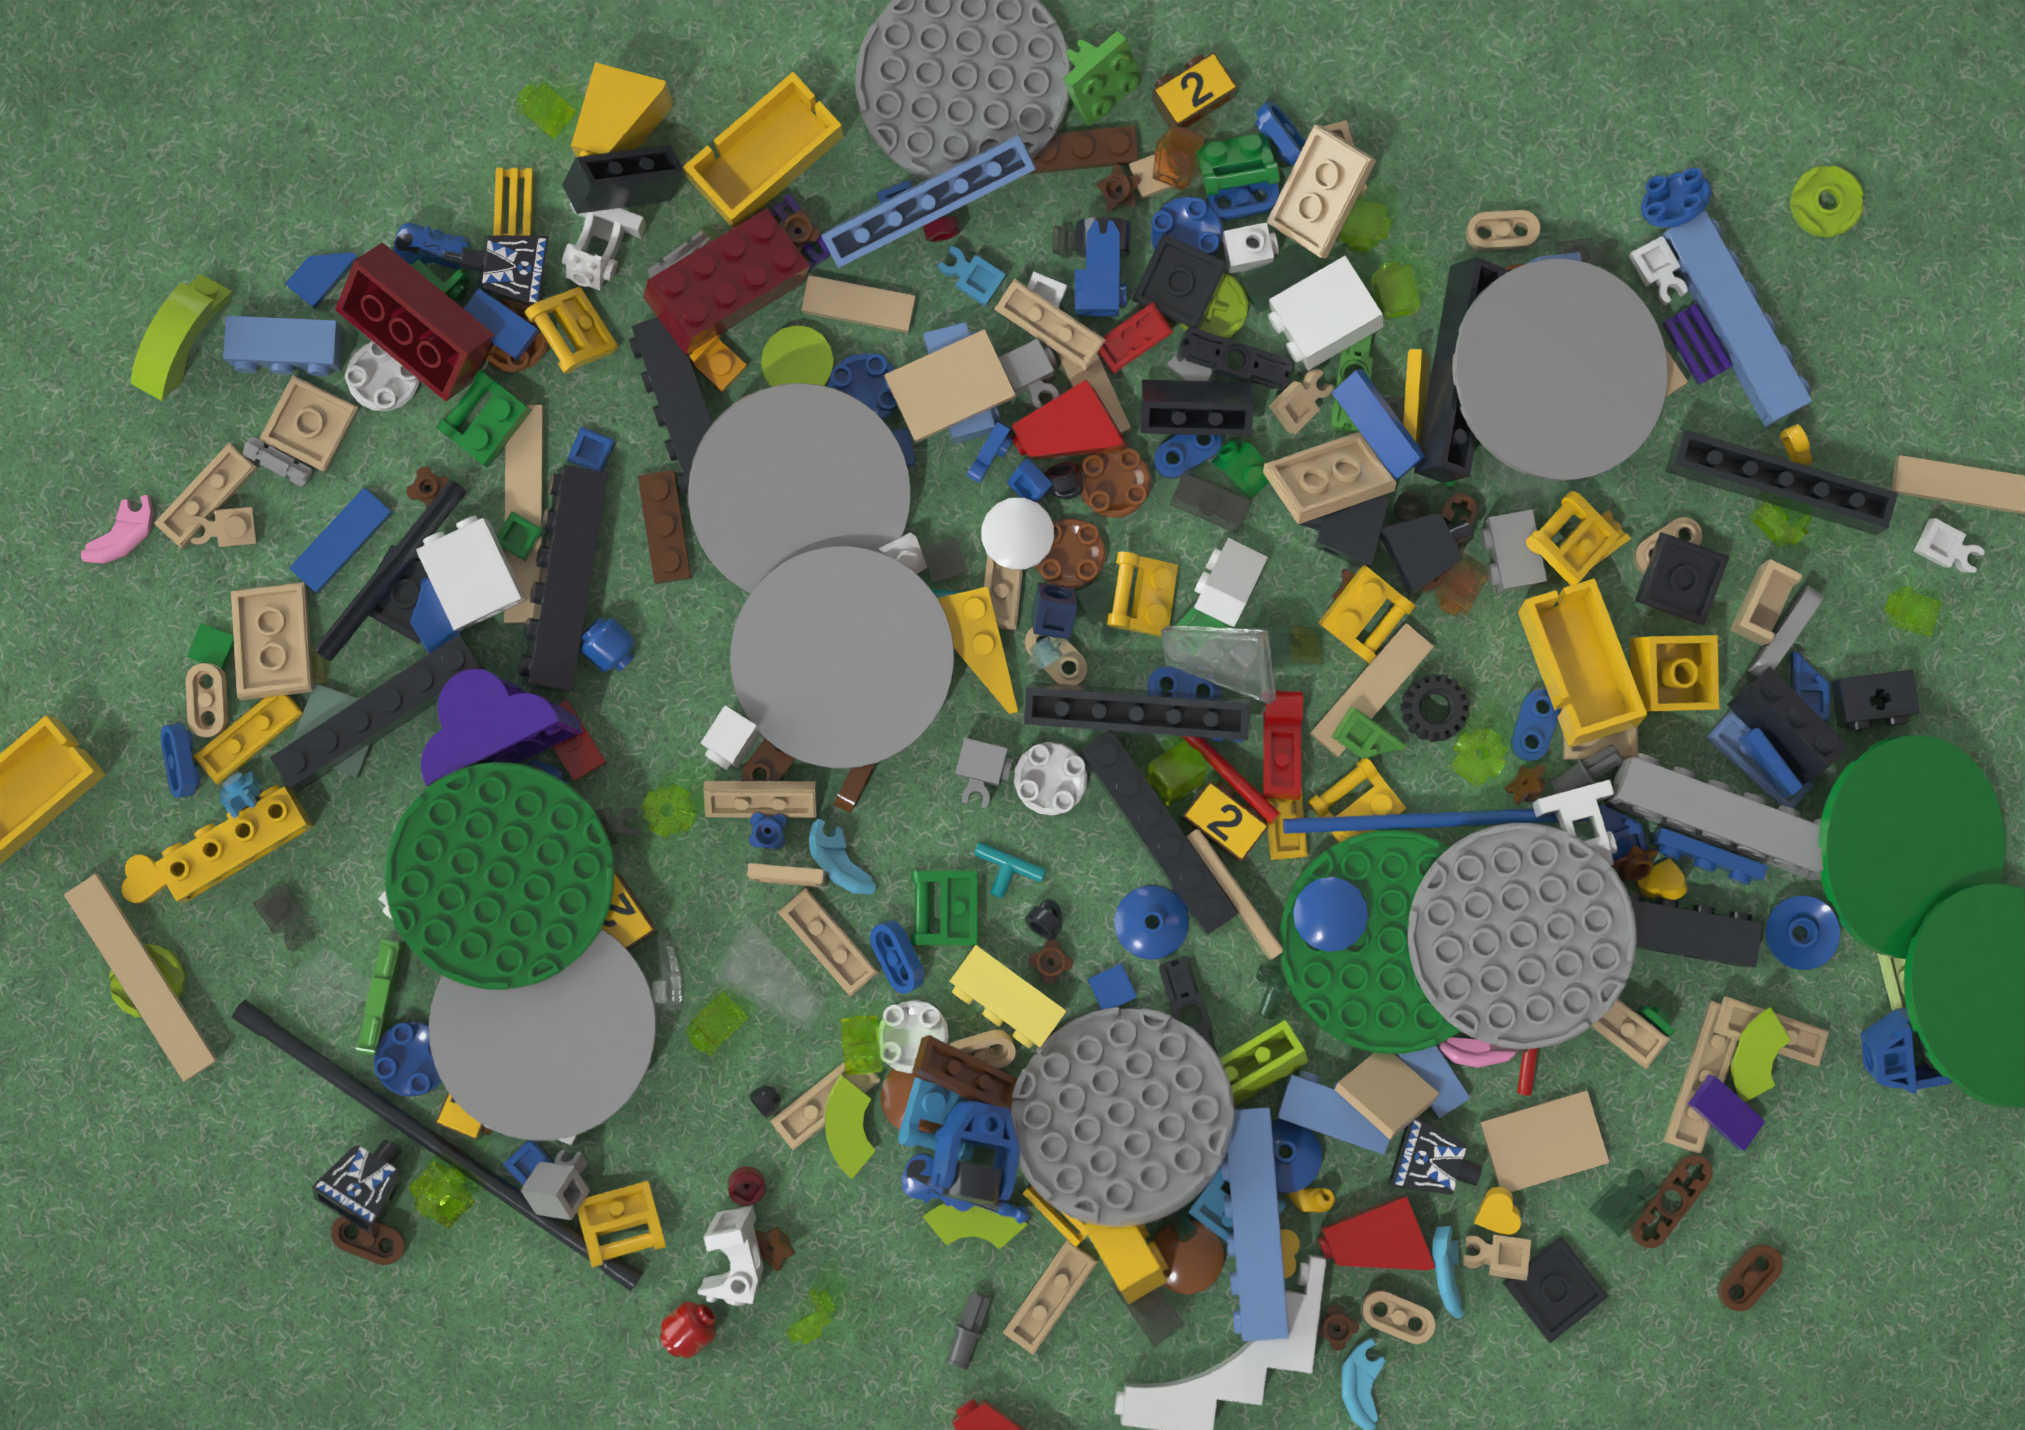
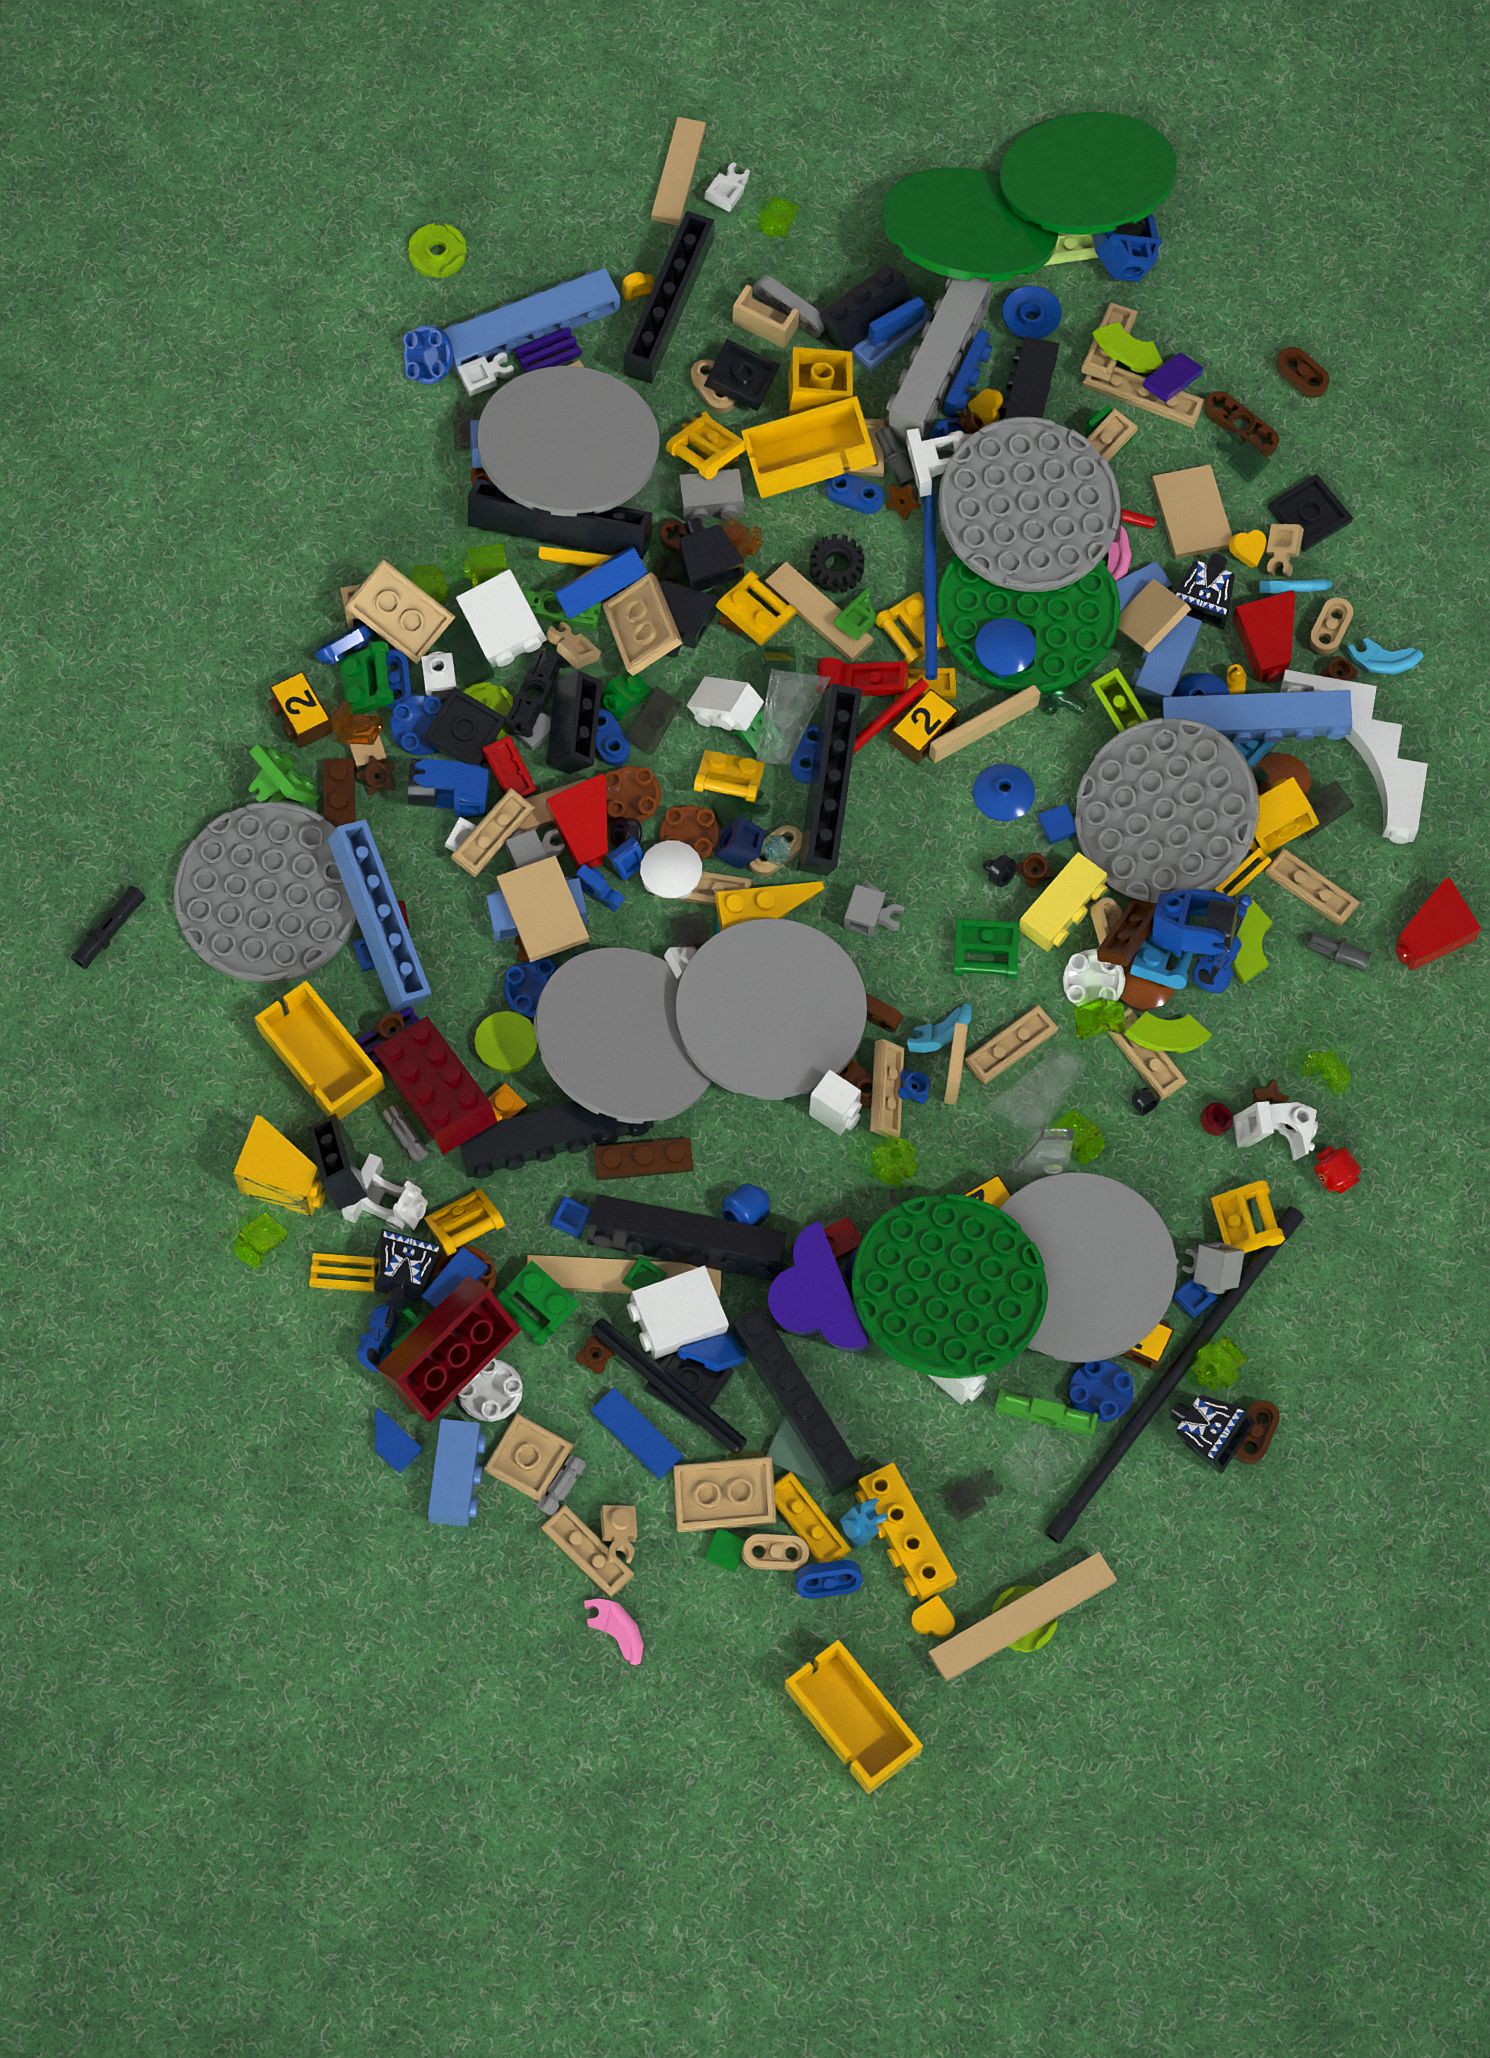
camera: 85 degrees left, 15 degrees down
(172, 332) = (443, 1561): lime arch -> none
(858, 304) = (459, 989): tan tile -> none
(897, 956) = (1025, 988): blue plate -> none
(976, 278) = (445, 892): dark azure plate -> none
(1009, 865) = (952, 898): teal piece -> none
(1050, 778) = (880, 859): white dish -> none
(1064, 240) = (418, 818): clear smoke plate -> none
(1158, 833) = (931, 776): black brick -> none
(1176, 773) = (882, 757): clear neon green brick -> none
(1180, 991) = (1062, 771): black piece -> none
(1469, 765) = (879, 532): clear neon green brick -> none
(1501, 230) = (441, 487): tan plate -> none
(1774, 525) = (703, 304): clear neon green bracket -> none
(1810, 686) = (831, 293): blue tile -> none
(1896, 693) = (847, 247): black brick -> none

